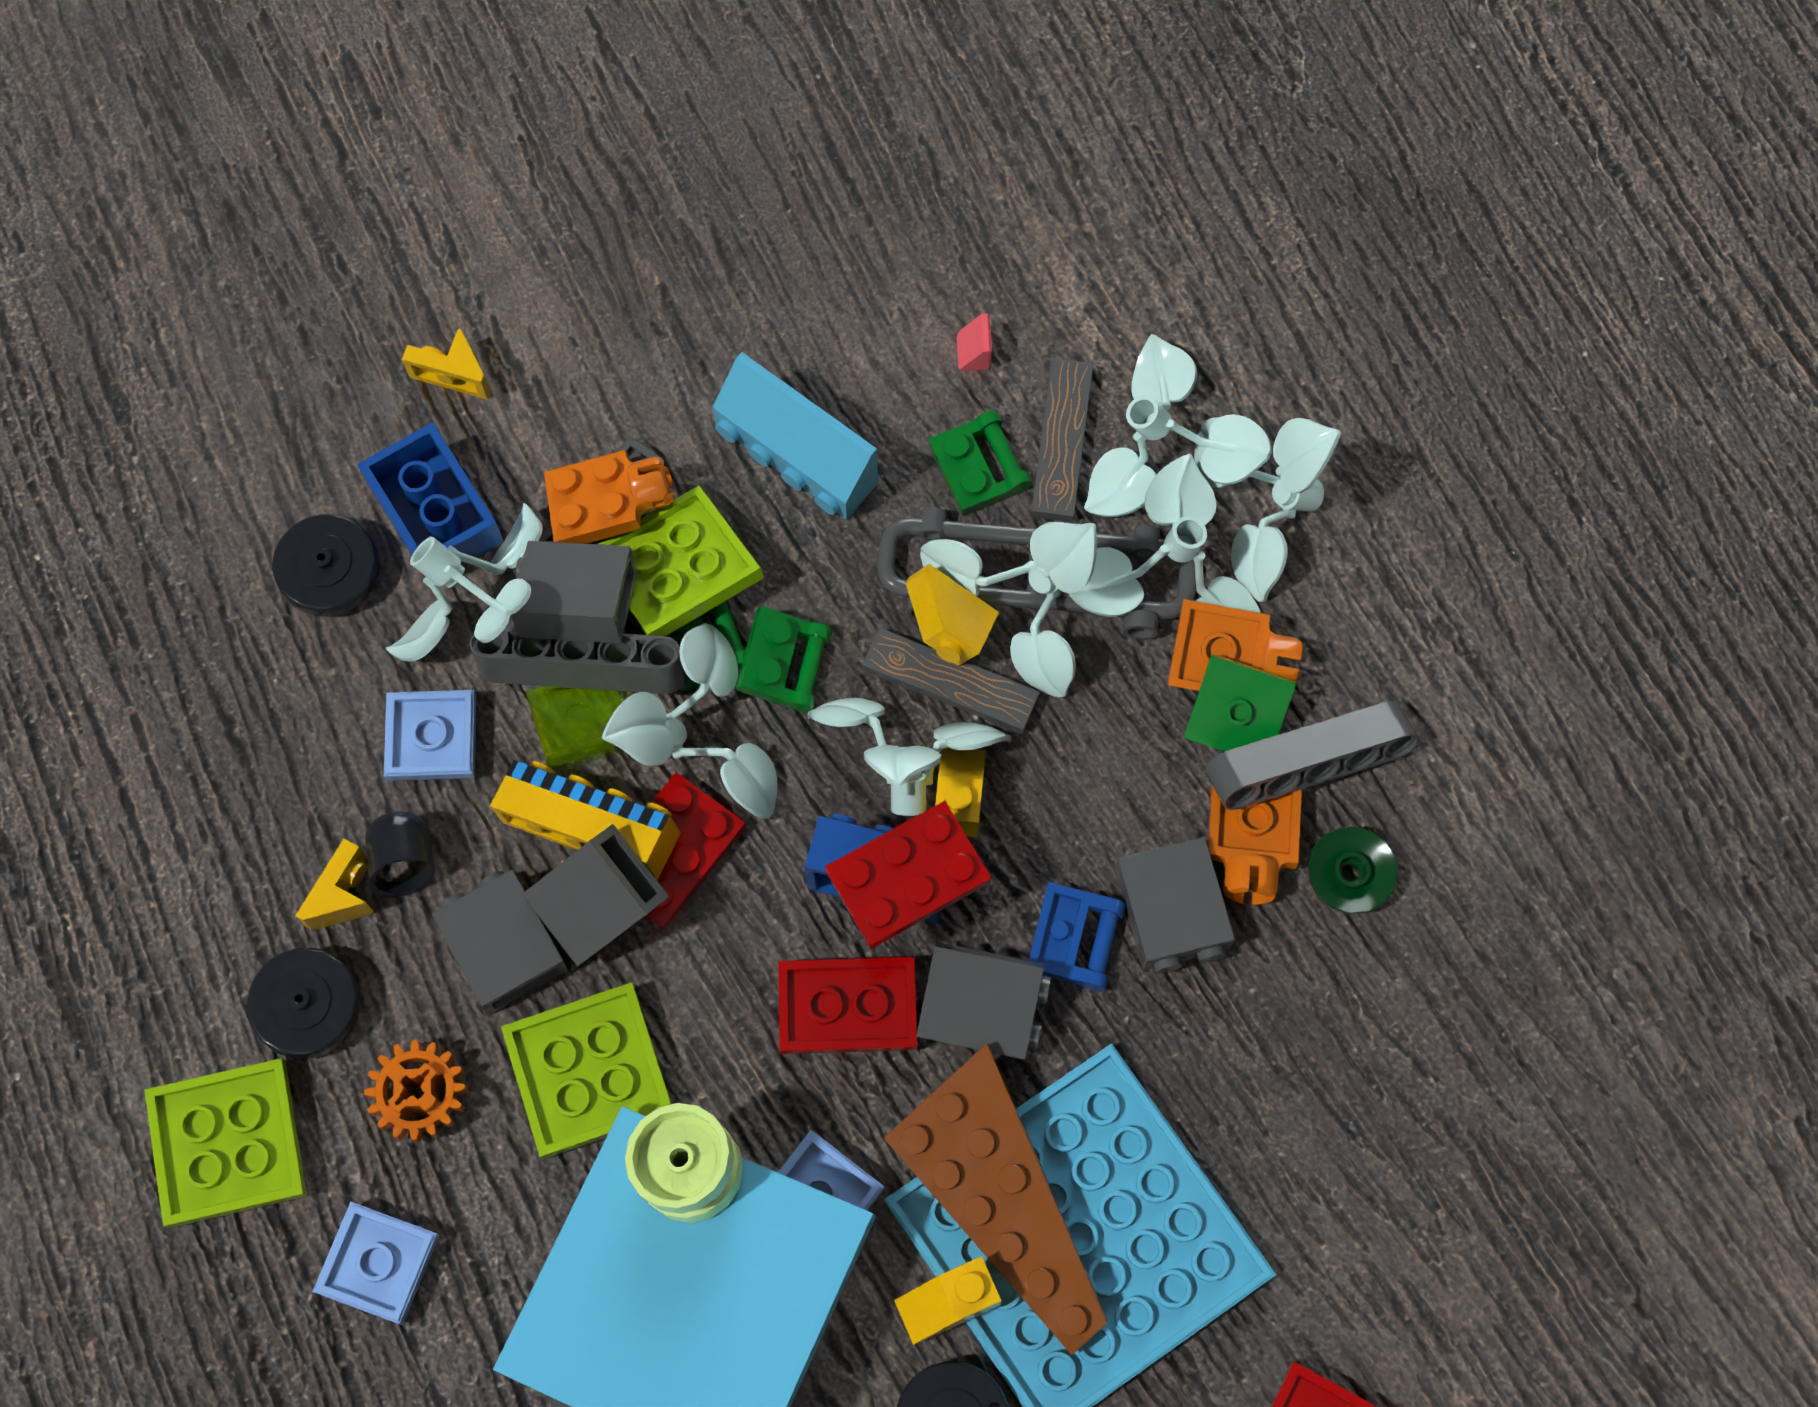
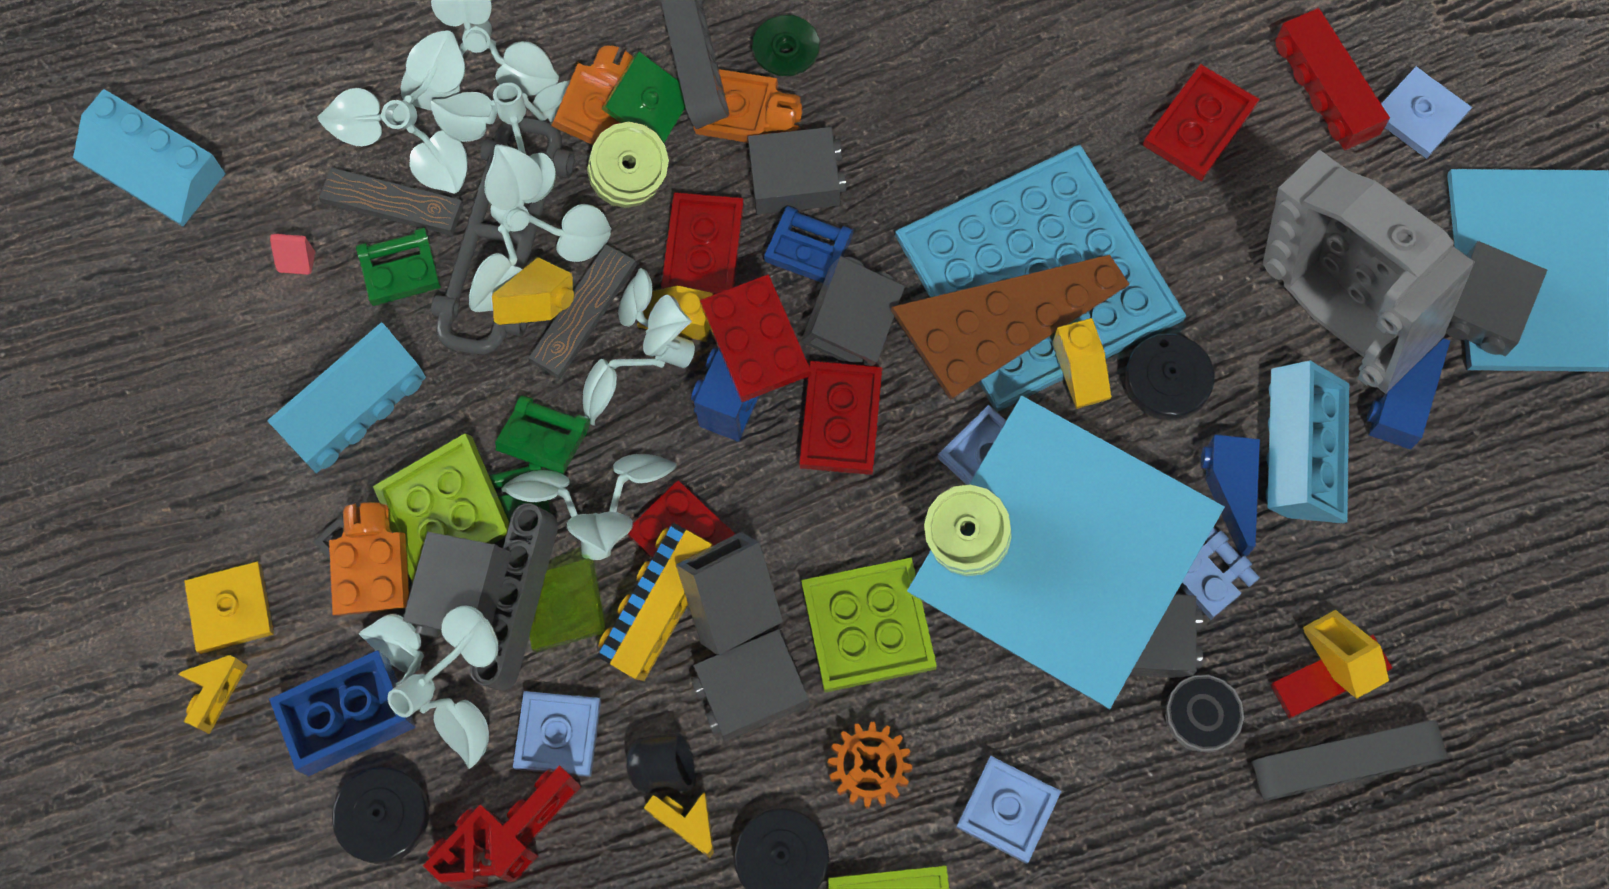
camera: 80 degrees left, 0 degrees up
(296, 688) = (482, 836): none -> red piece
(548, 366) = (228, 607): none -> yellow plate
(1054, 807) = (703, 242): none -> red plate
(1073, 164) = (145, 158): none -> medium azure slope
(1117, 682) = (642, 150): none -> yellowish green wheel

